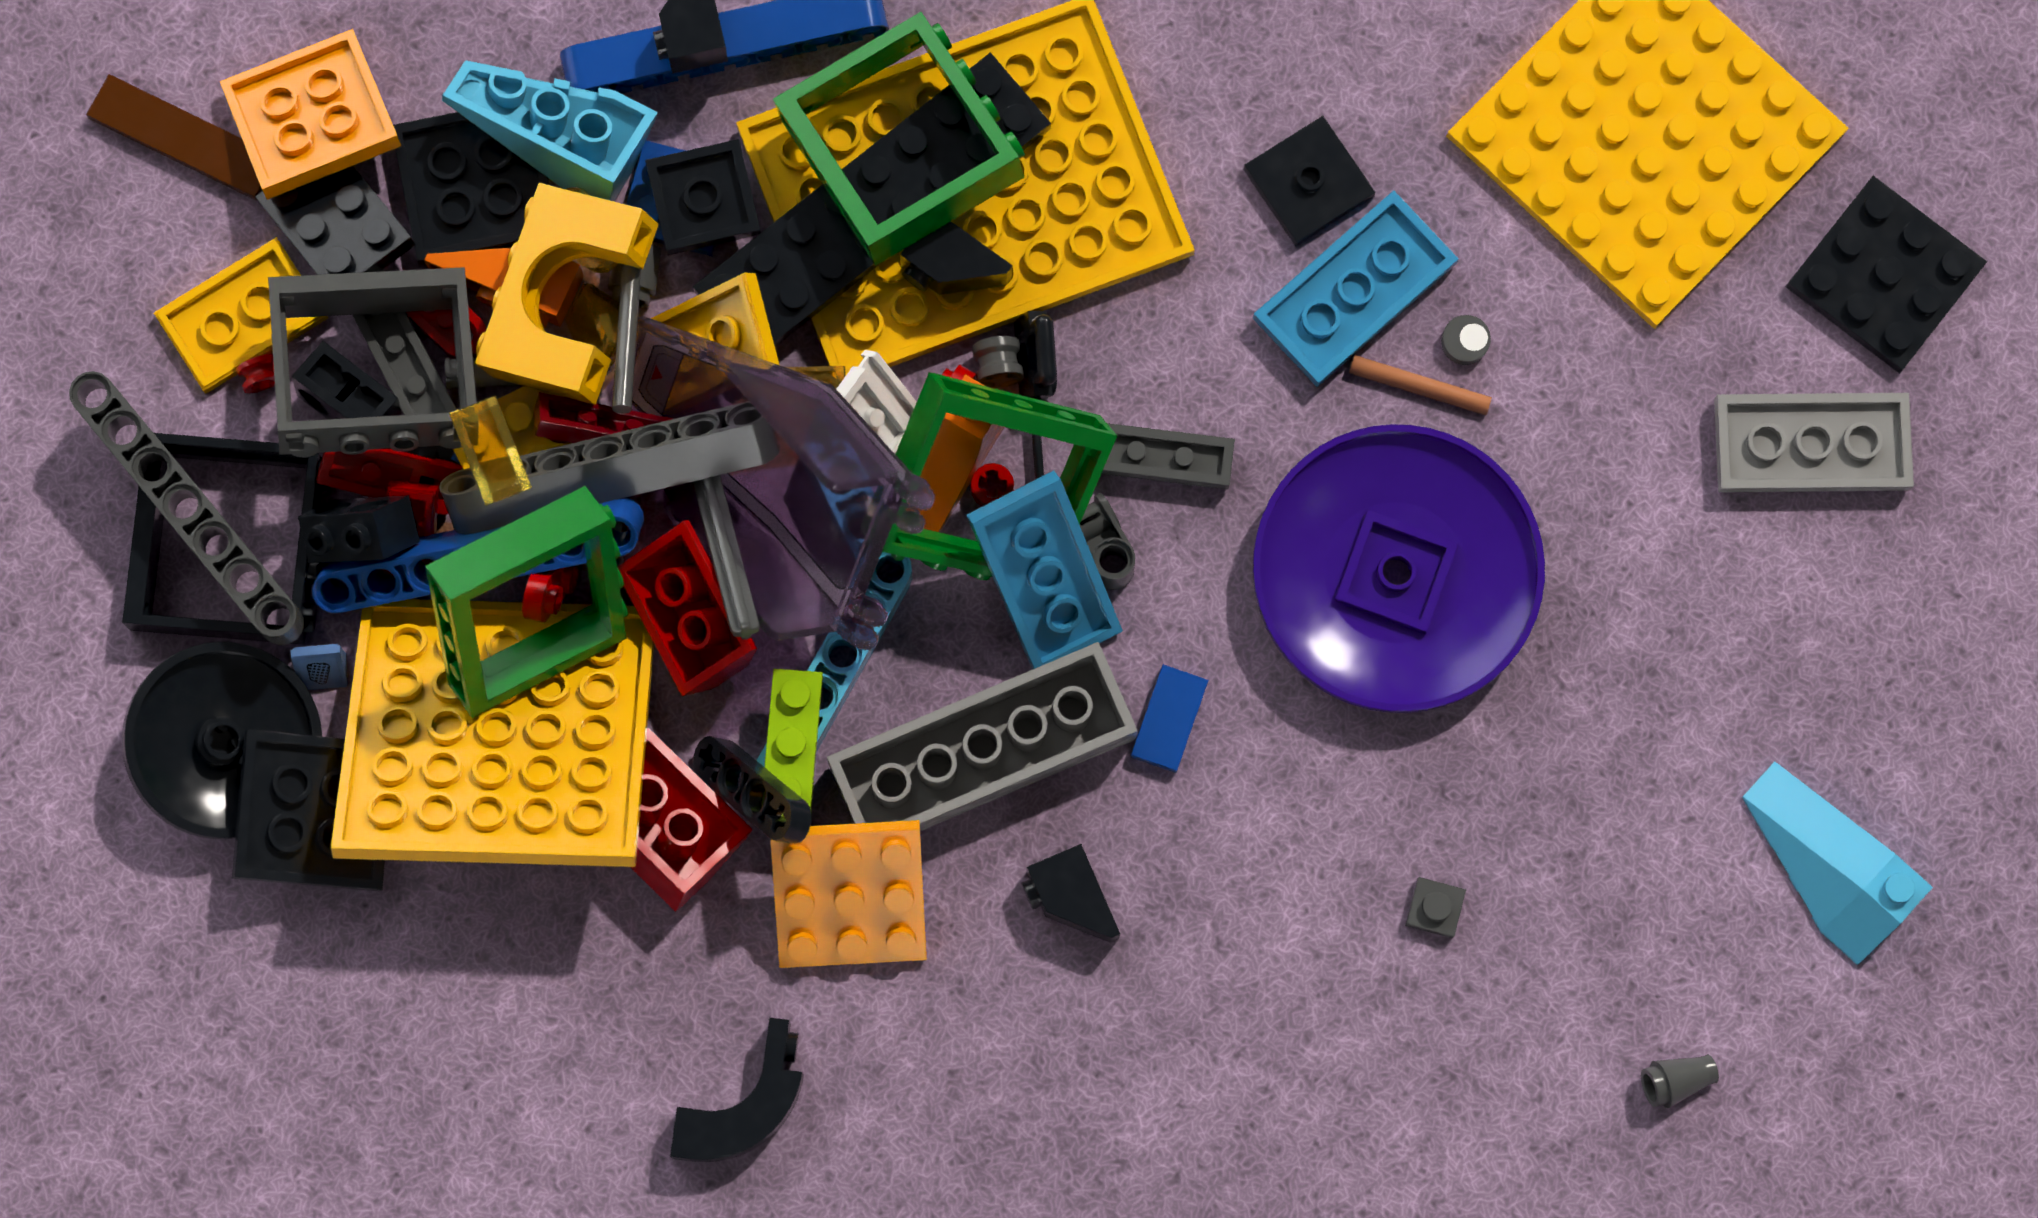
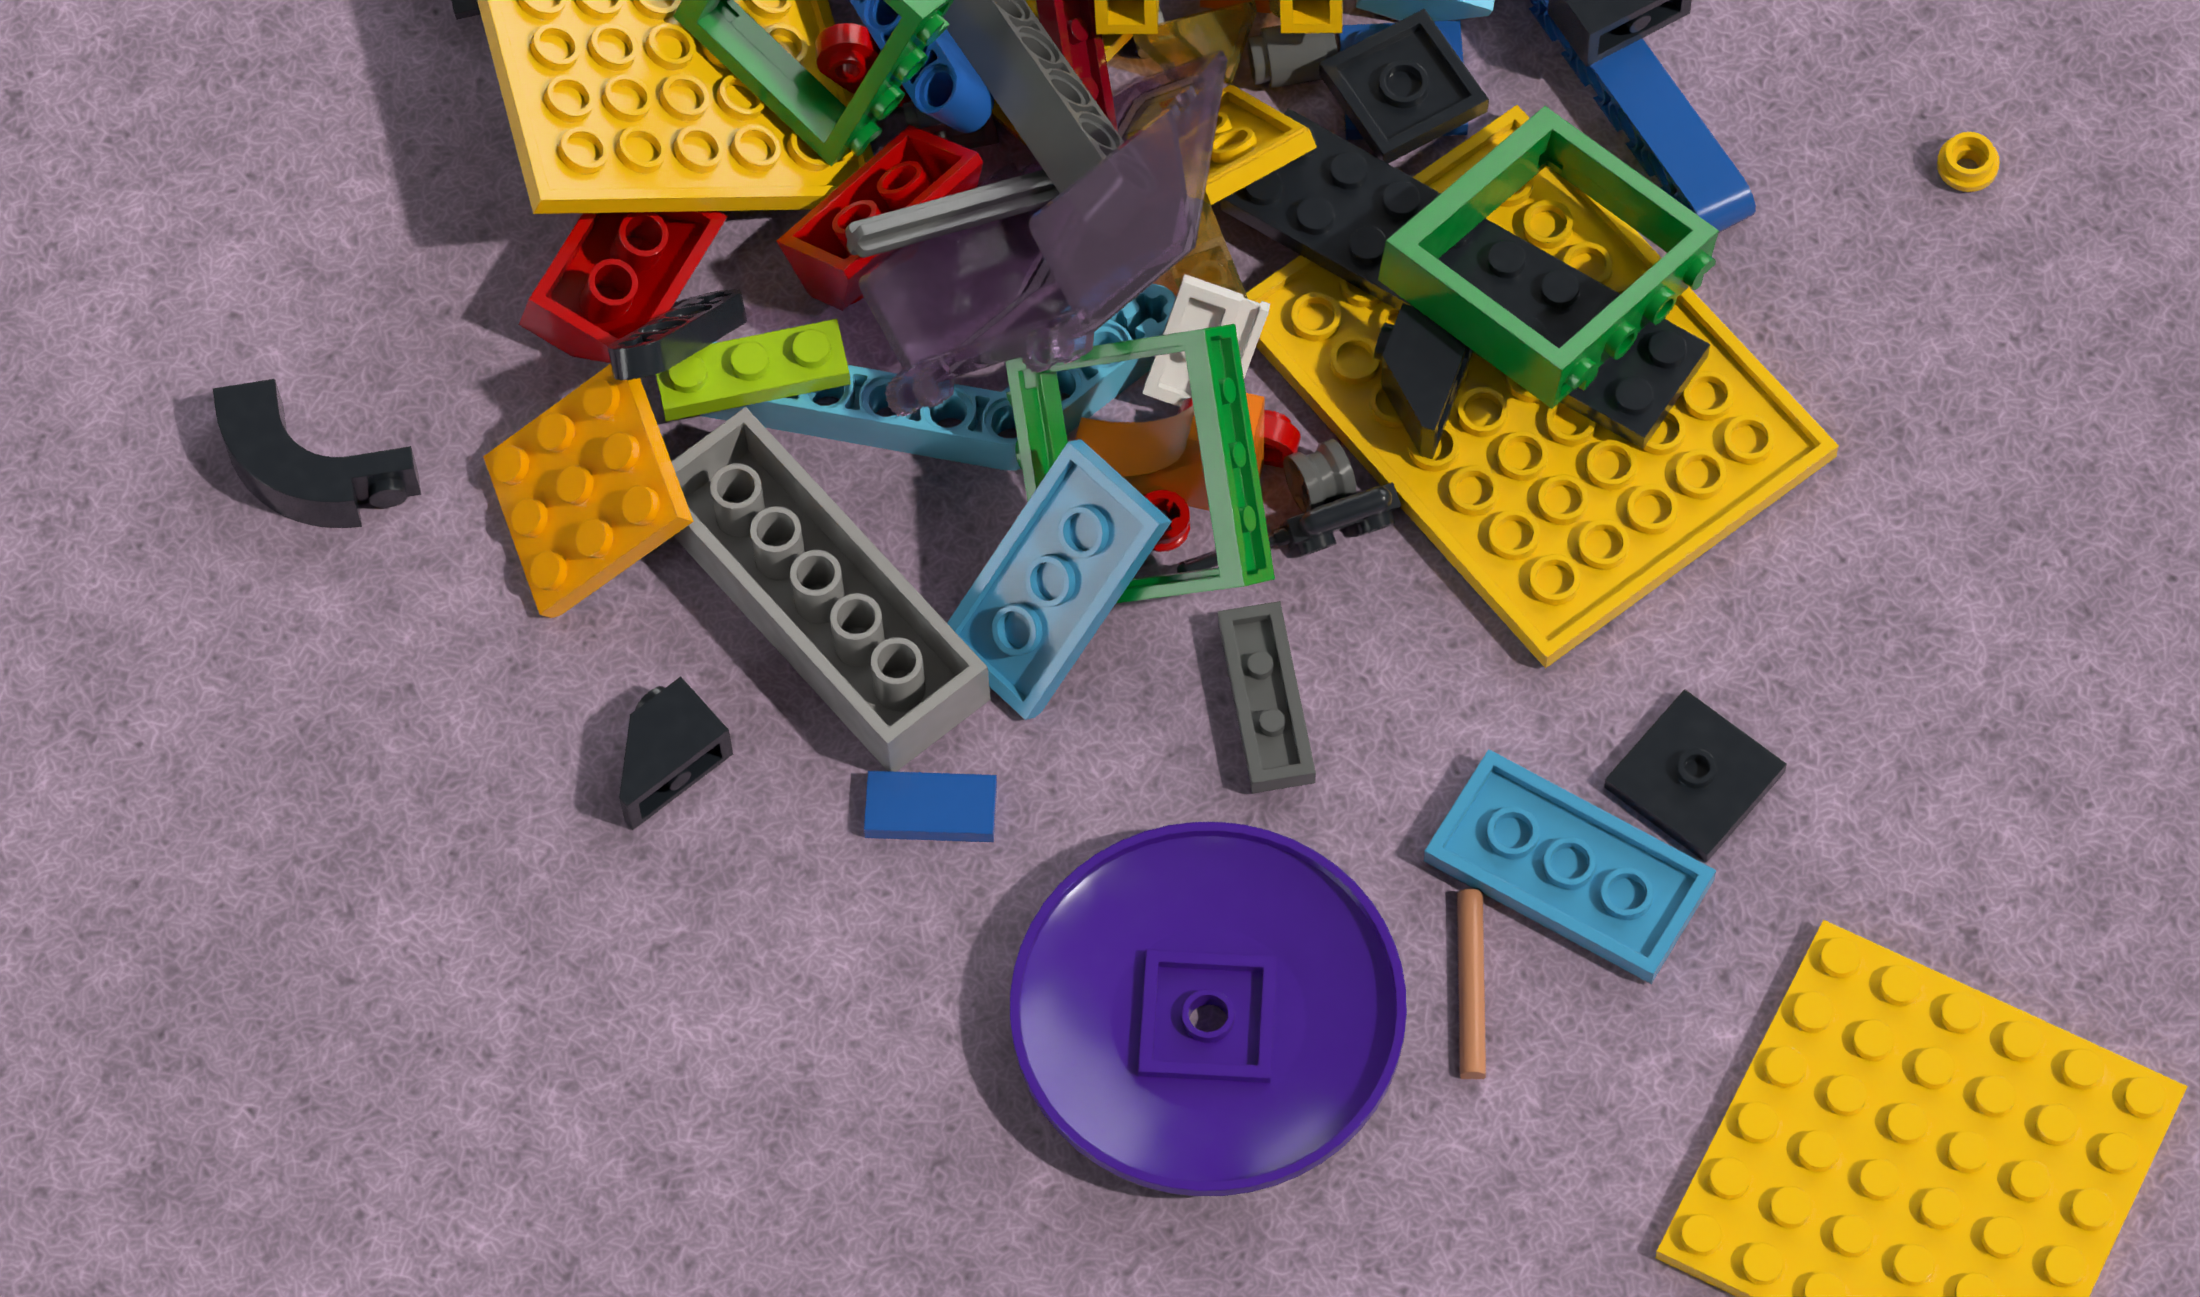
camera: 80 degrees right, 15 degrees down
(626, 339) = (1192, 40): dark grey bar -> none
(1106, 538) = (1134, 650): dark grey piece -> none
(1435, 907) = (781, 1191): dark grey plate -> none
(1465, 339) = (1551, 1022): dark grey tile -> none

